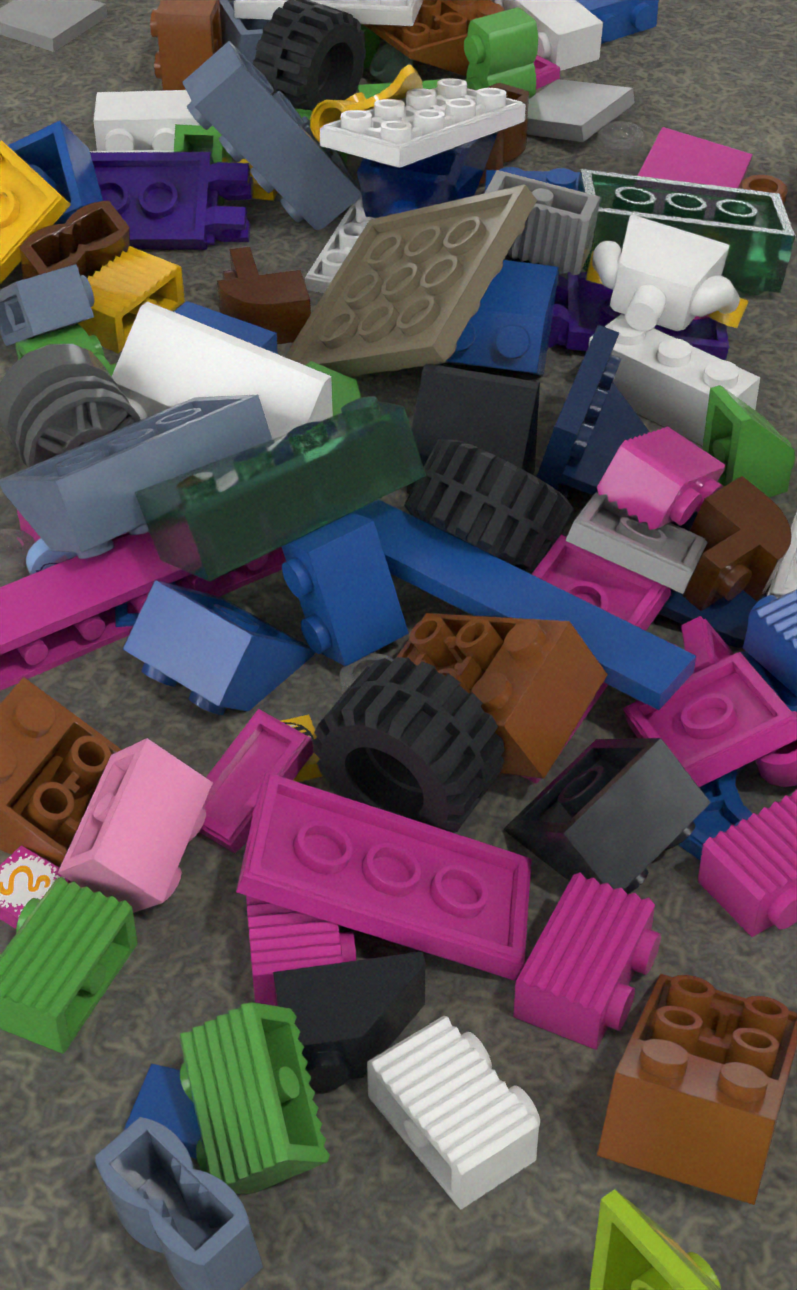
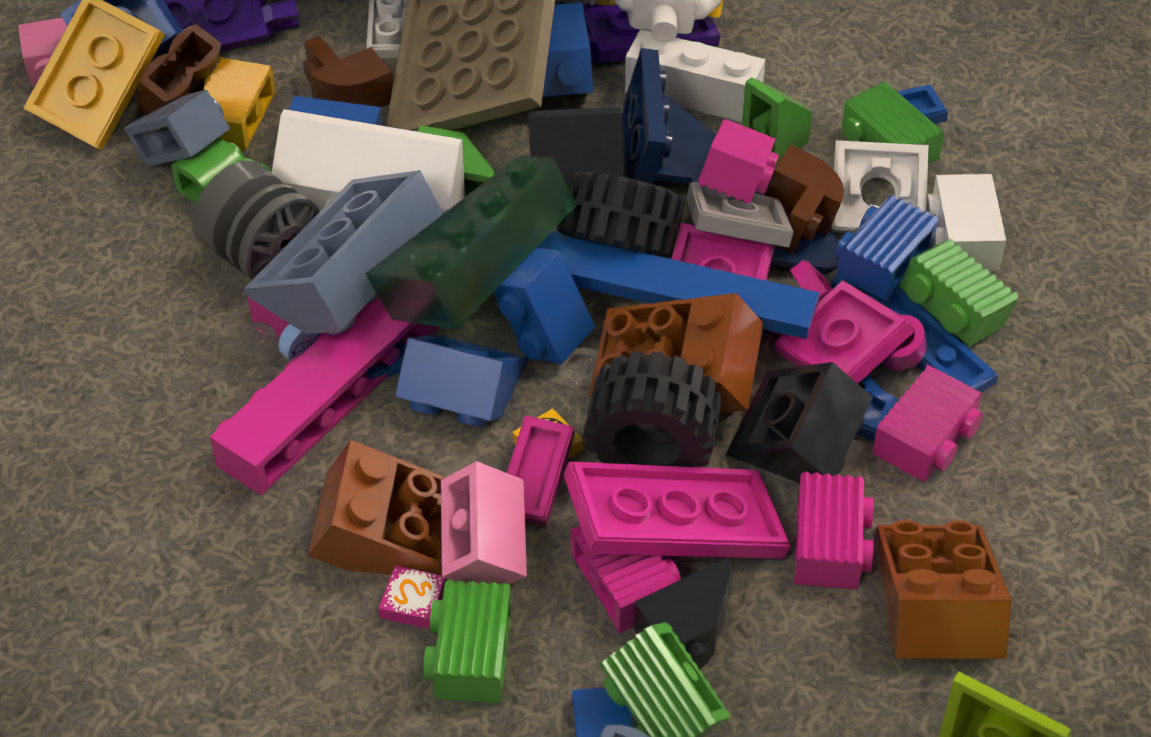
camera: 20 degrees left, 5 degrees up
(454, 1110) = (790, 657): white brick -> none

